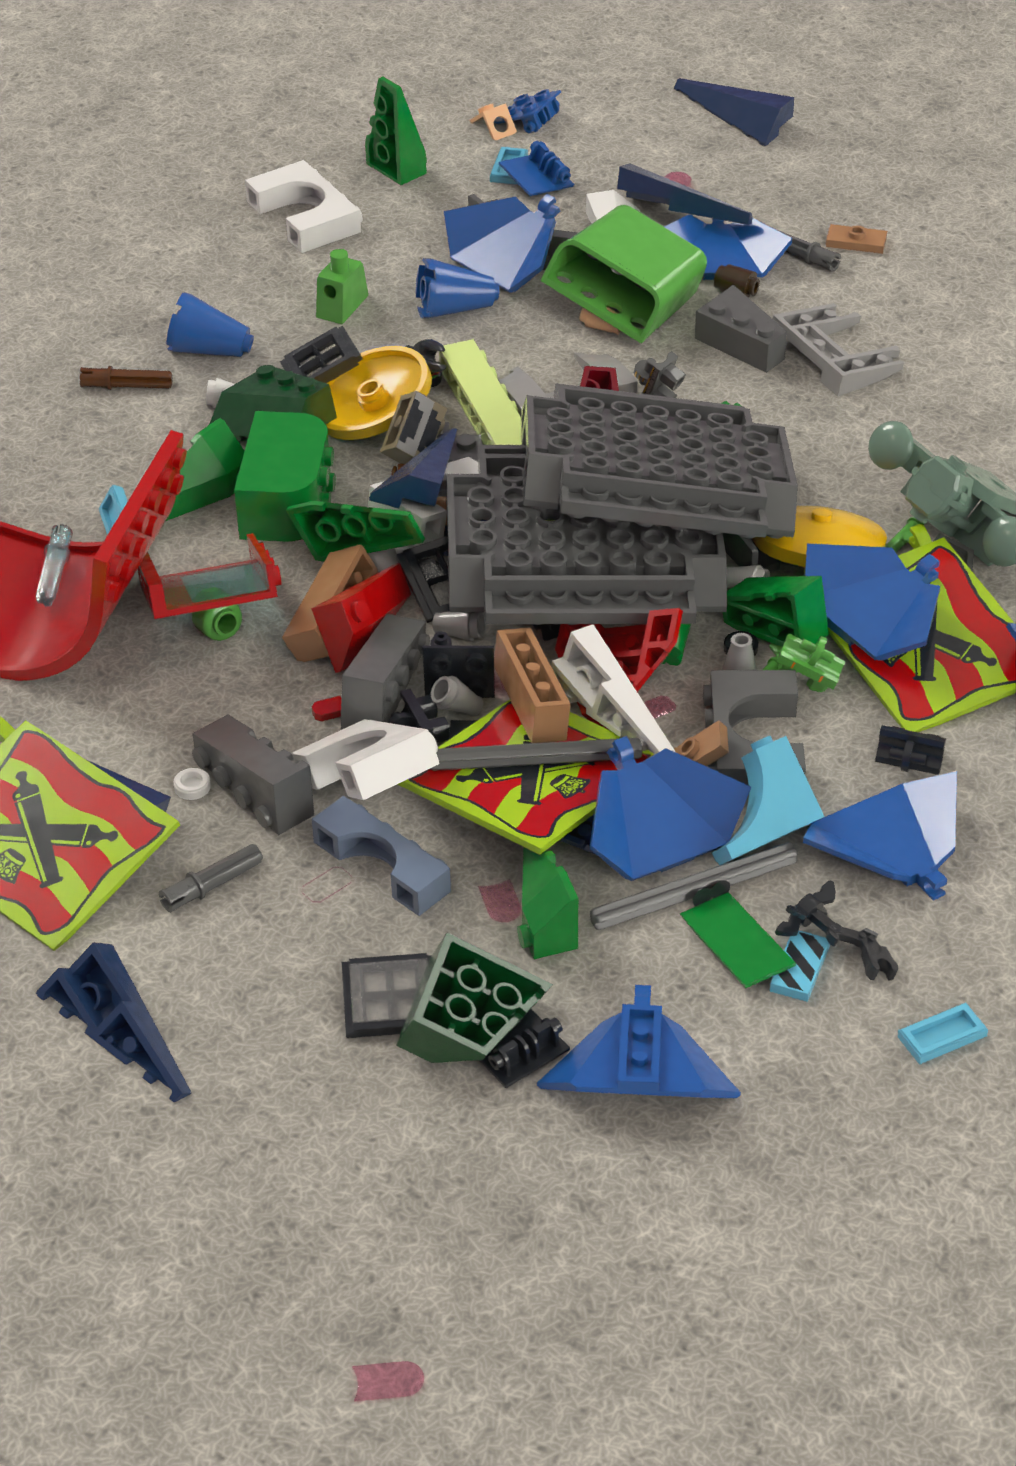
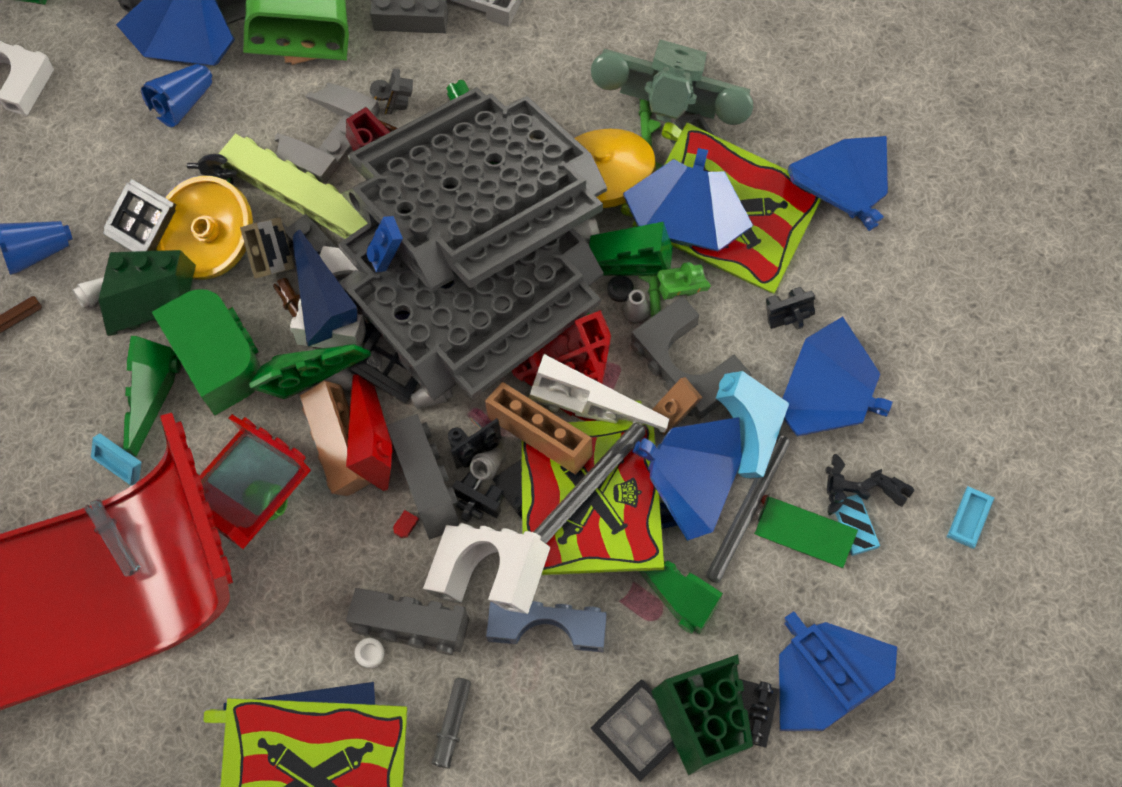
camera: 35 degrees left, 25 degrees up
(340, 287) = (92, 133): bright green torso -> none
(516, 435) = (384, 244): none -> blue plate

